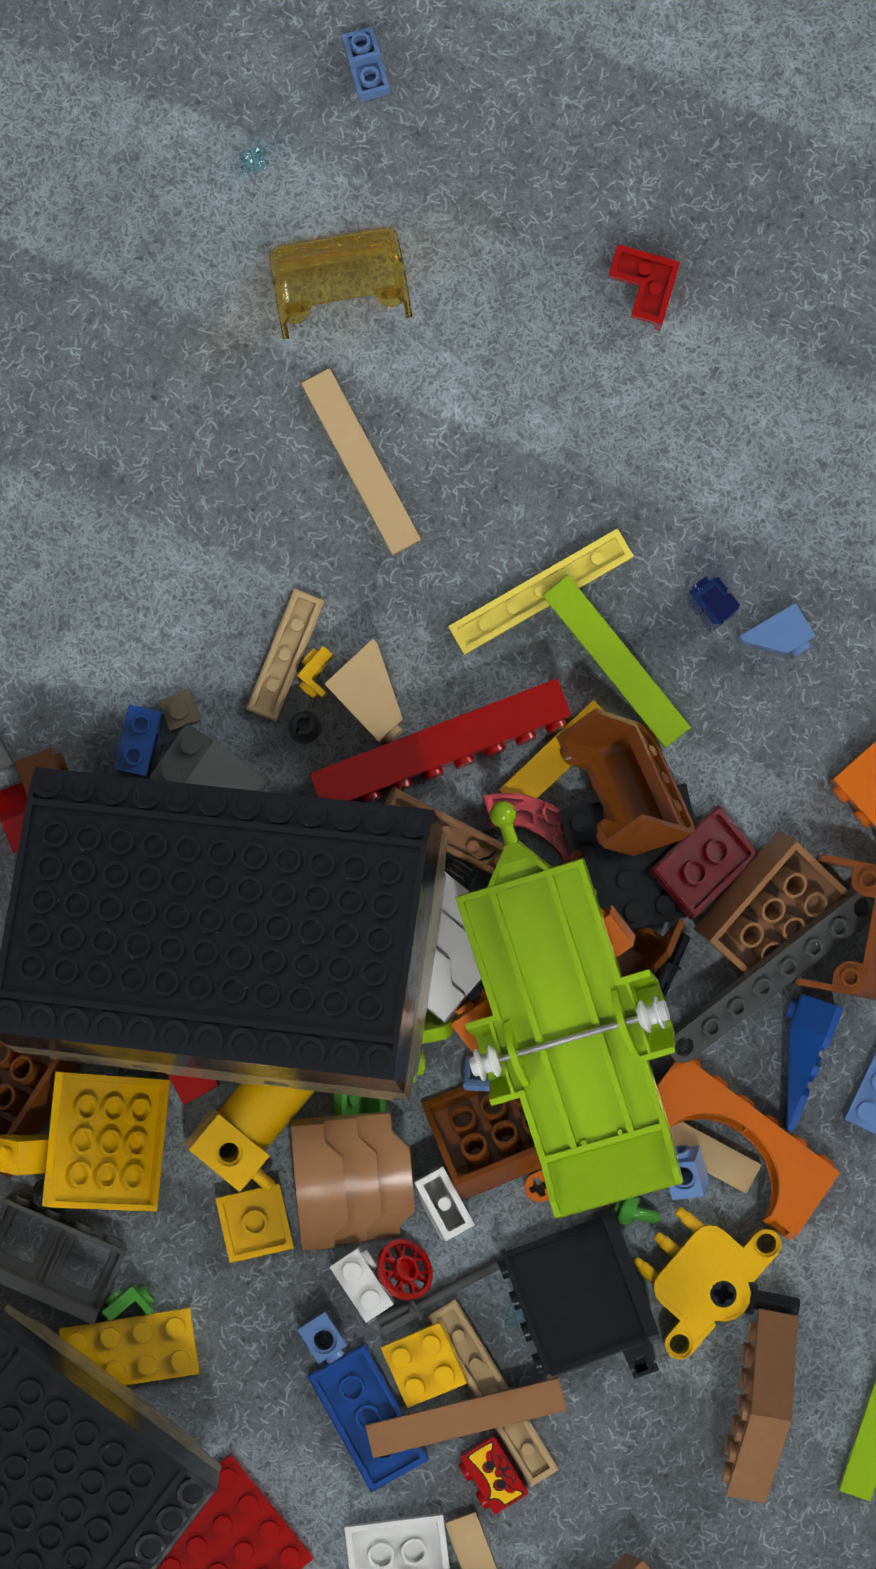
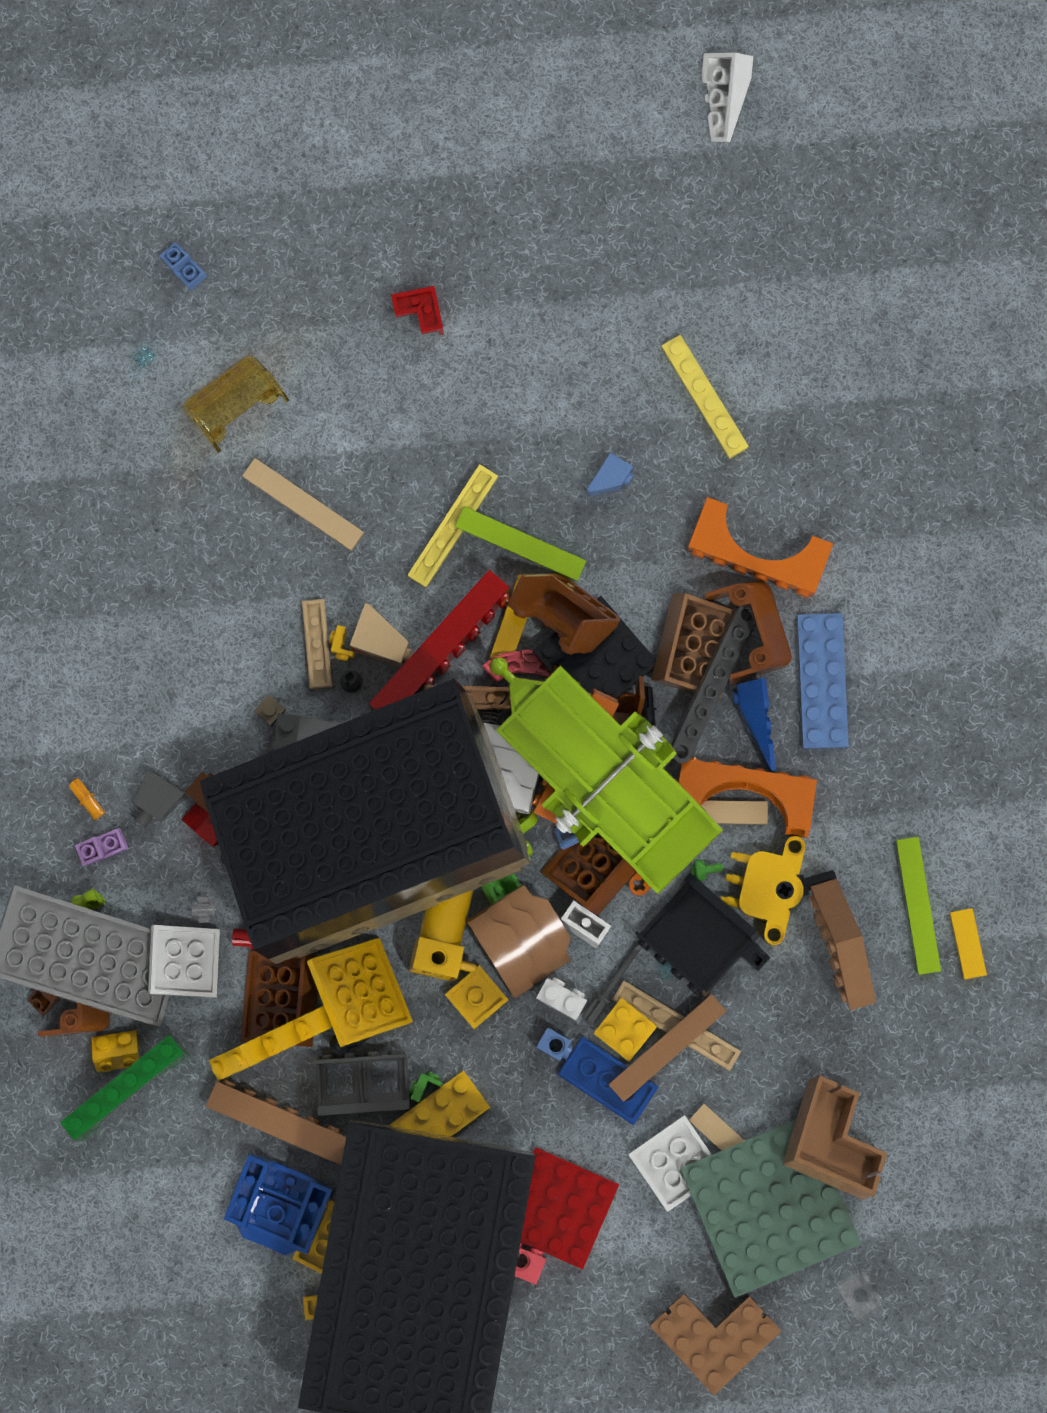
camera: 20 degrees left, 5 degrees down
(138, 741) = (253, 737): blue brick -> none
(191, 1087) = (395, 931): red panel -> none
(404, 1269) = (583, 977): red wheel -> none
(493, 1474) = (702, 1073): brick -> none
(695, 1181) = (730, 834): medium blue brick -> none
(704, 862) = (636, 636): dark red tile -> none
(712, 602) = (560, 478): clear blue brick -> none

